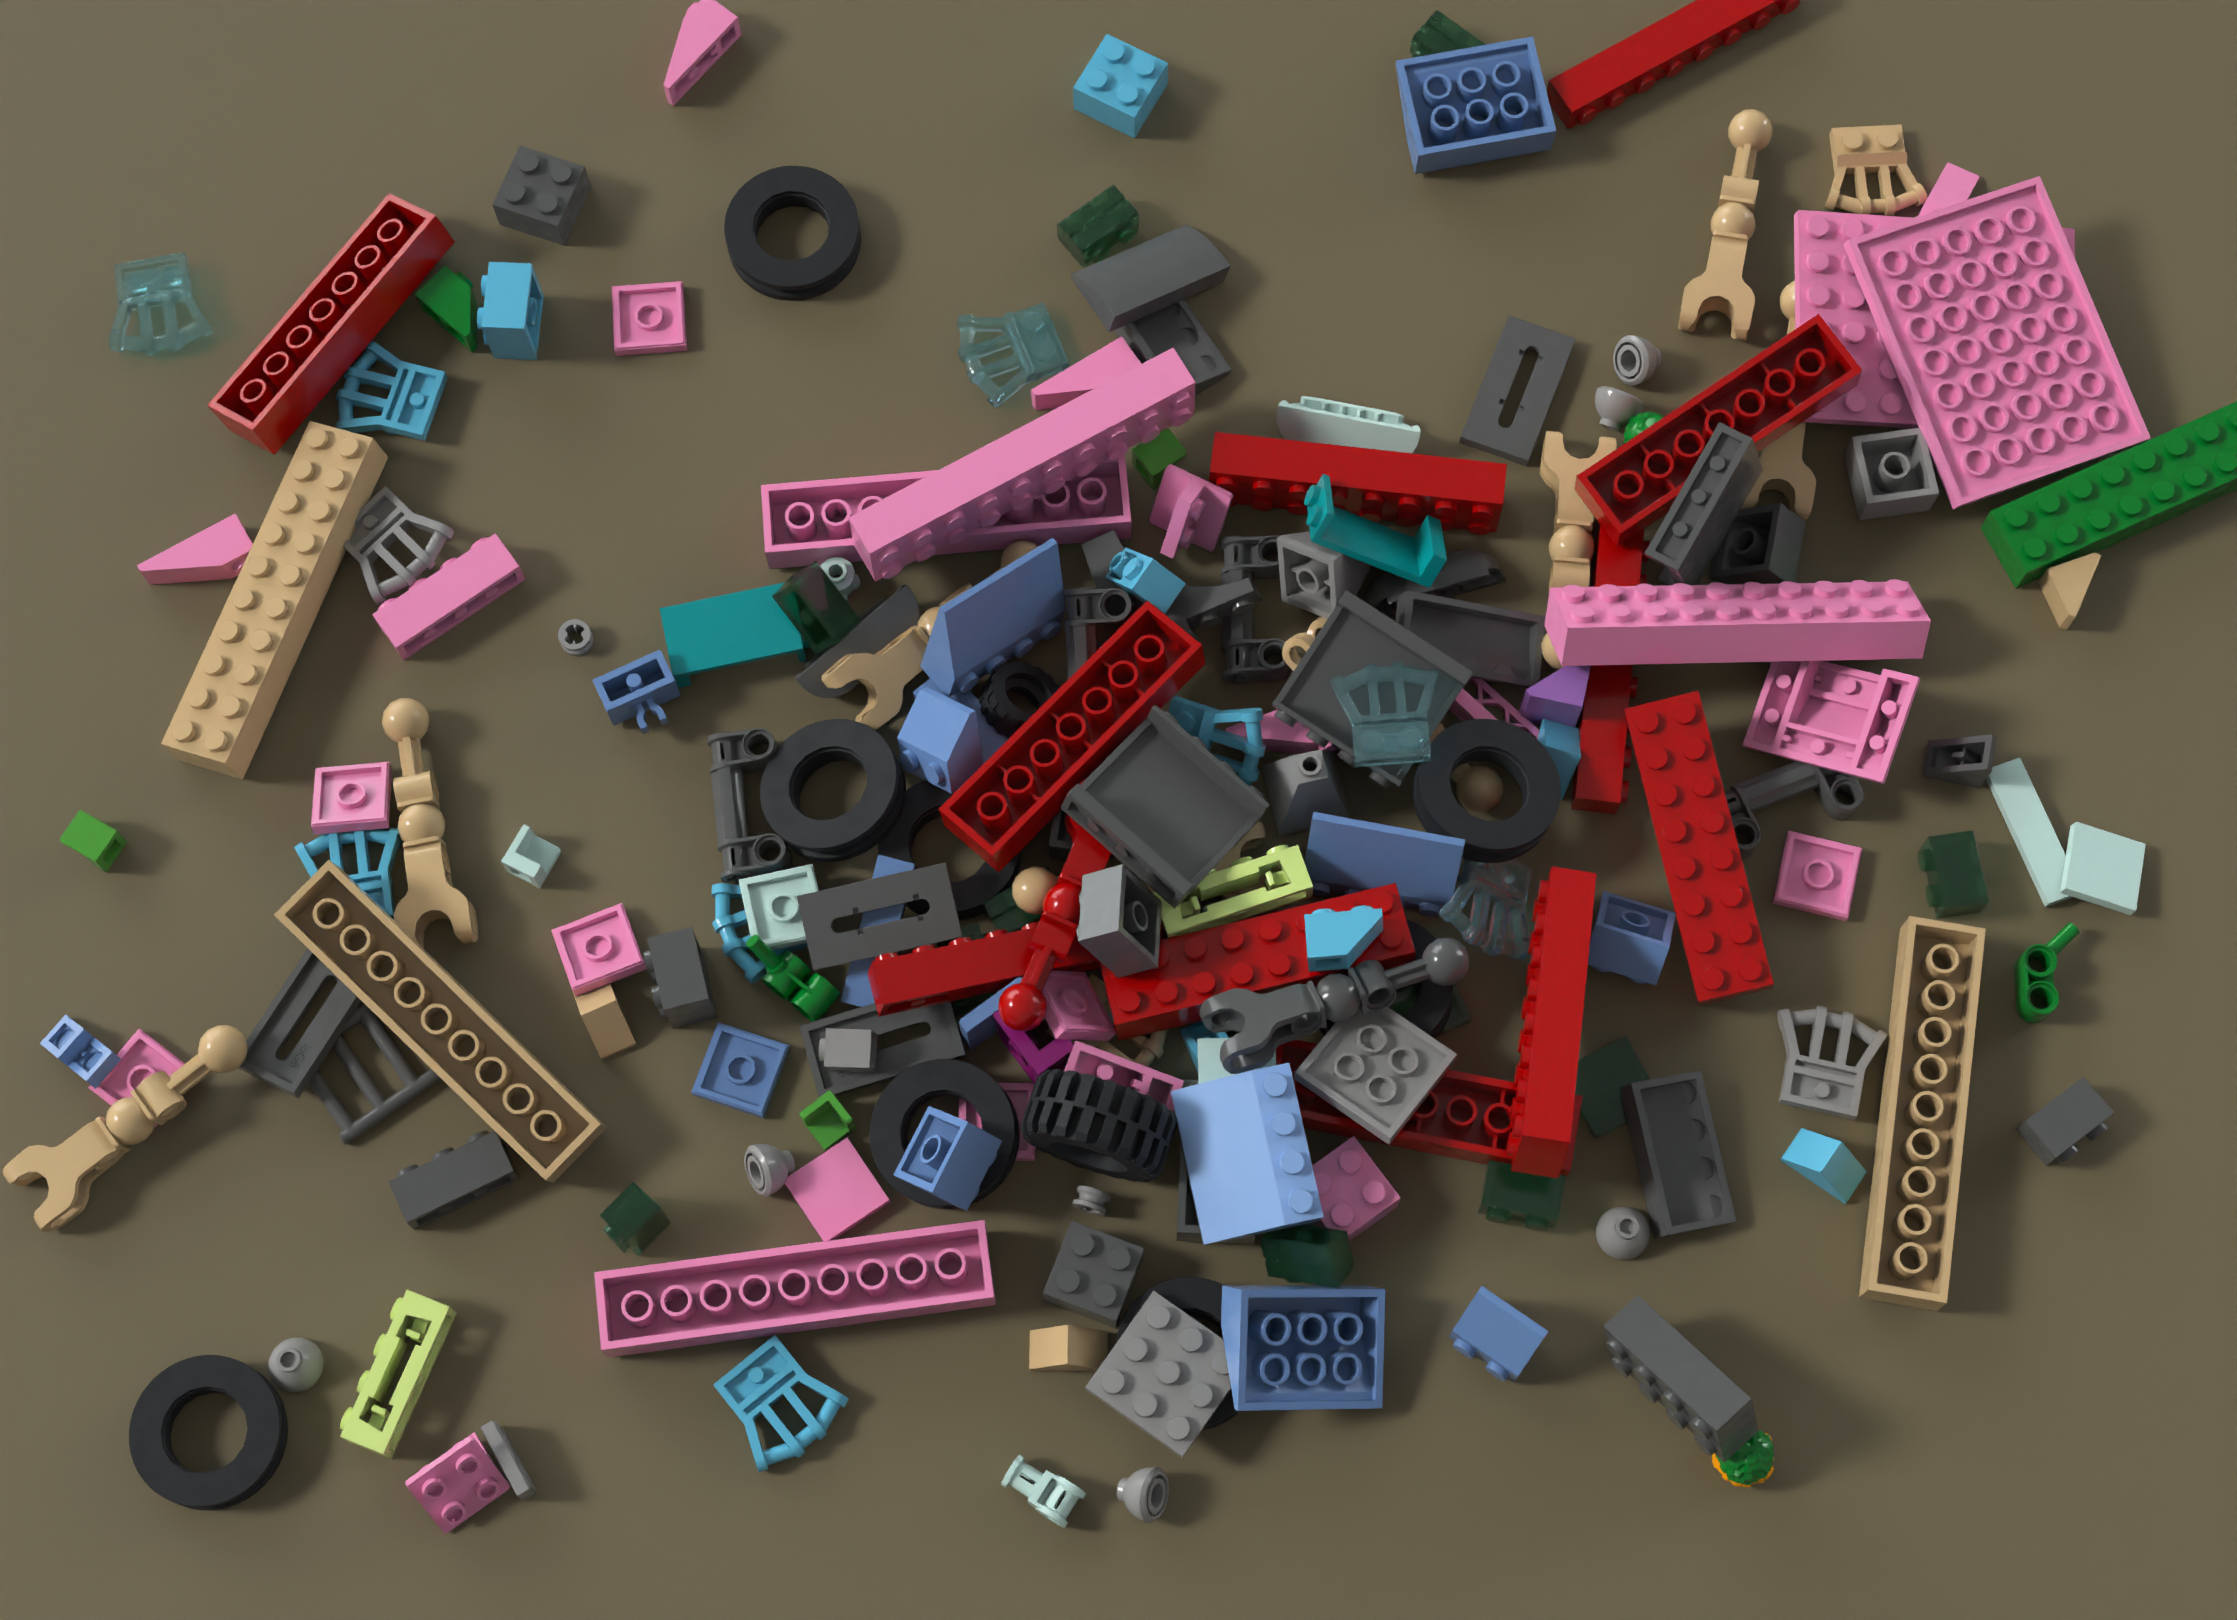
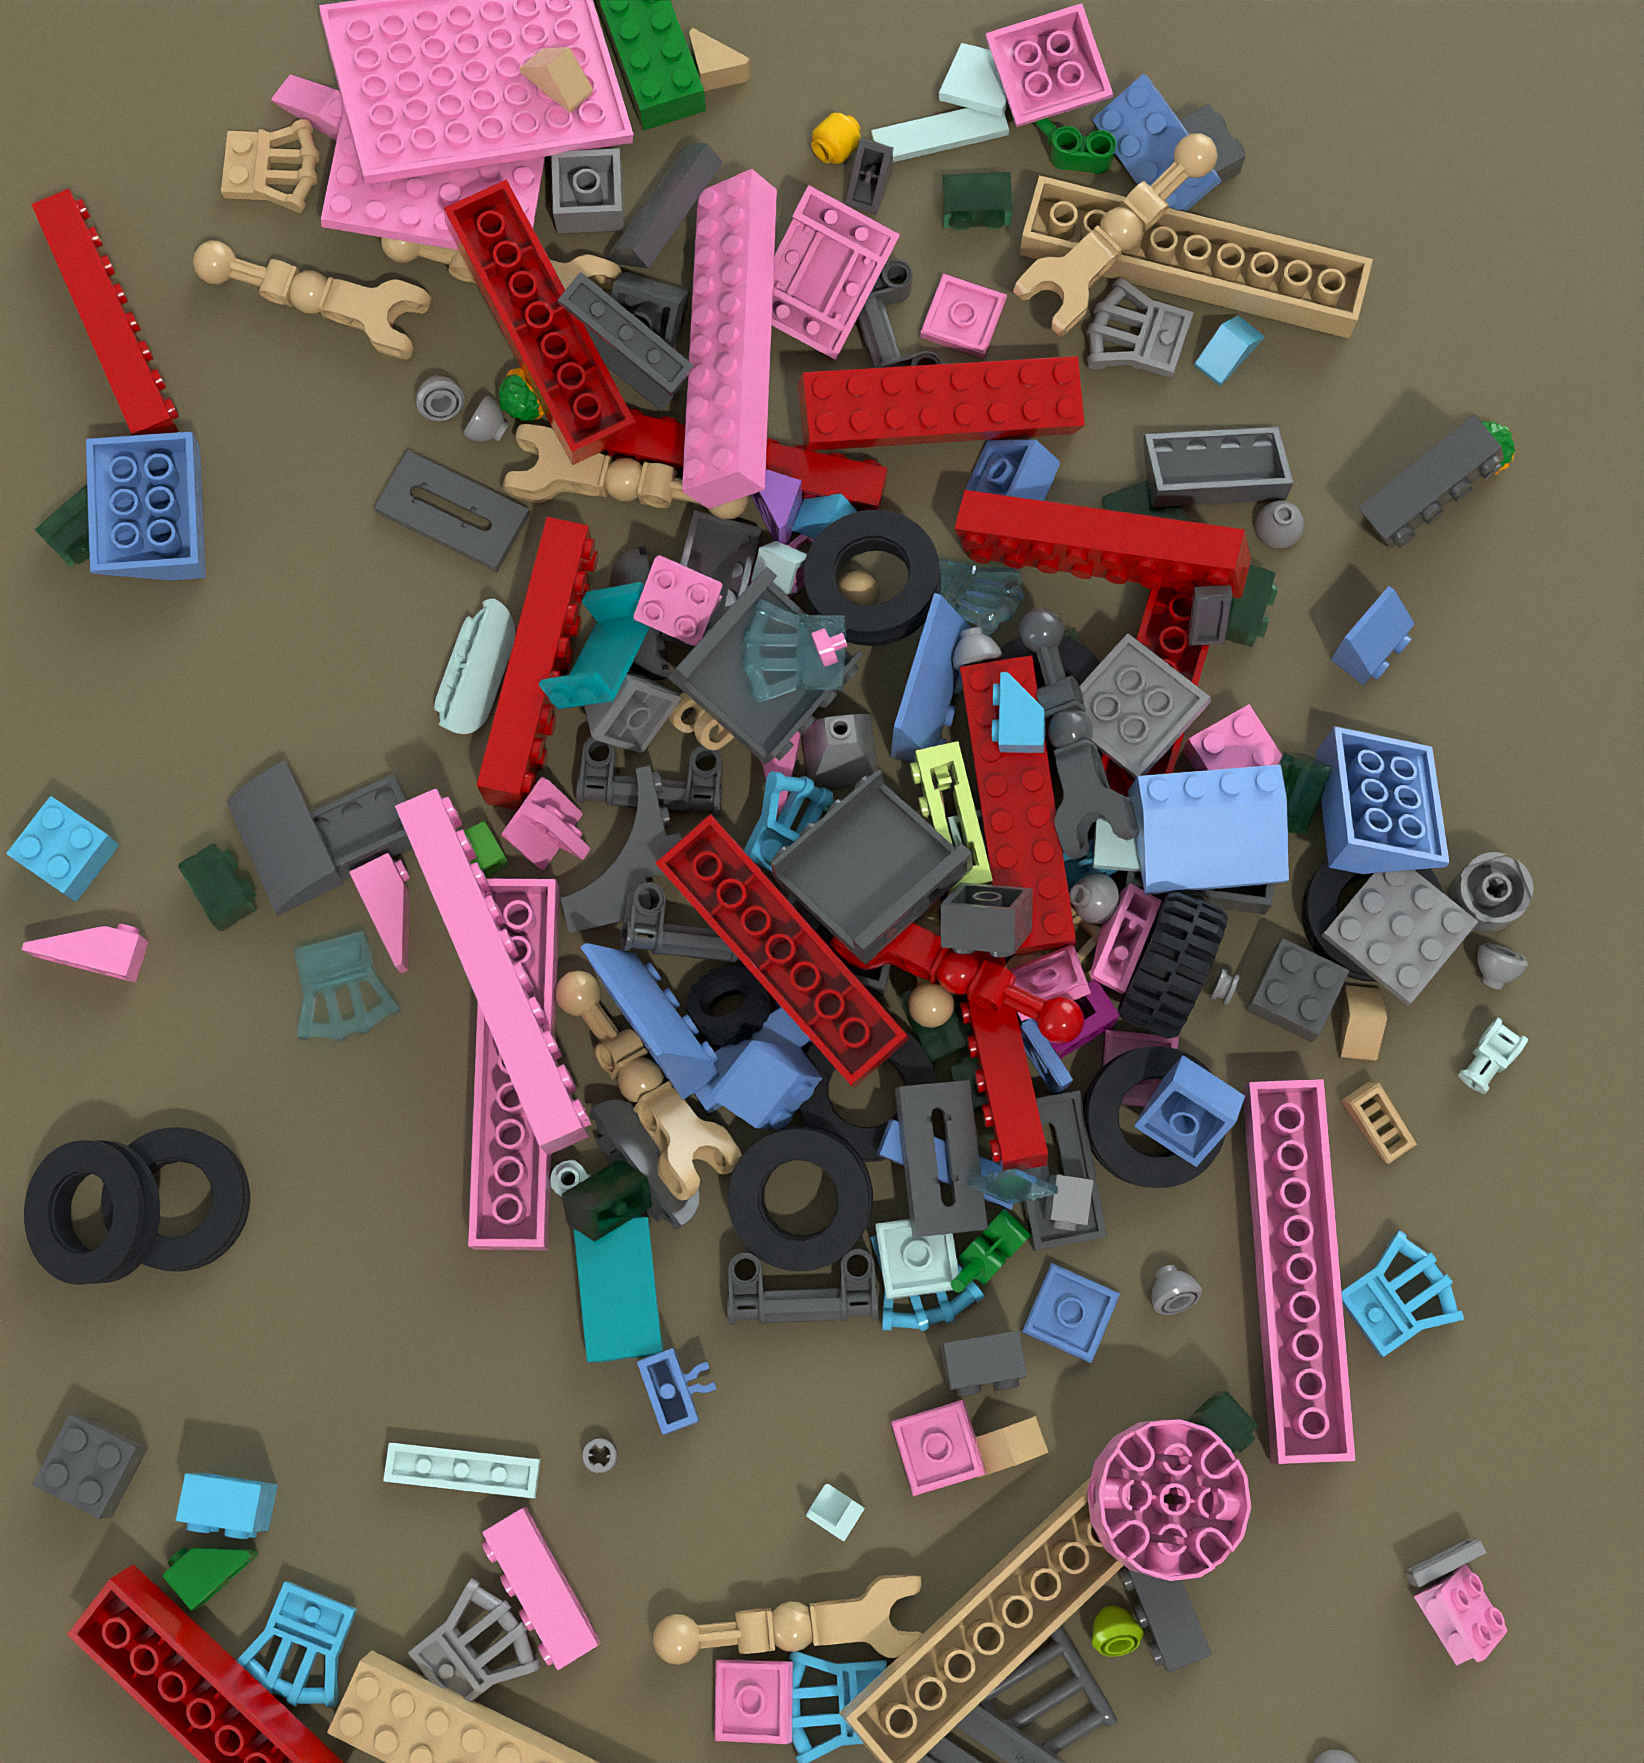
camera: 85 degrees left, 5 degrees up
(389, 1350) = (1414, 1702): yellowish green brick -> none
(427, 1132) = (1115, 1632): none -> lime cone
(520, 1125) = (1176, 1537): none -> bright pink brick
(555, 515) = (462, 1470): none -> light aqua plate
(649, 318) = (249, 1359): bright pink tile -> none
(779, 186) = (49, 1211): none -> black tyre
(827, 1121) = (1131, 1229): bright green panel -> none
(836, 1191) = (1197, 1227): bright pink tile -> none
(854, 985) = (1012, 1186): none -> clear light blue piece
(987, 1351) = (1360, 1116): none -> tan slope
(1024, 135) = (97, 950): none -> bright pink slope
(1144, 579) = (623, 869): medium azure slope -> none
(1167, 1048) = (1094, 898): none -> light grey brick
(1231, 1456) = (1498, 874): none -> light grey brick
(1388, 733) = (827, 646): none -> bright pink tile
(1419, 902) = (975, 649): none -> light grey brick
(1430, 596) = (678, 600): none -> bright pink bracket
(1483, 1133) = (1209, 615): none -> dark grey tile
(1492, 698) = (782, 561): none -> light aqua panel
(1883, 551) = (665, 206): none -> dark grey slope
(1925, 1012) = (1118, 232): none -> tan piece
(2002, 718) = (836, 138): none -> yellow head
(2005, 420) = (558, 76): none -> tan slope
(2049, 1062) = (1146, 140): none -> medium blue plate
(2127, 933) = (1049, 65): none -> bright pink slope

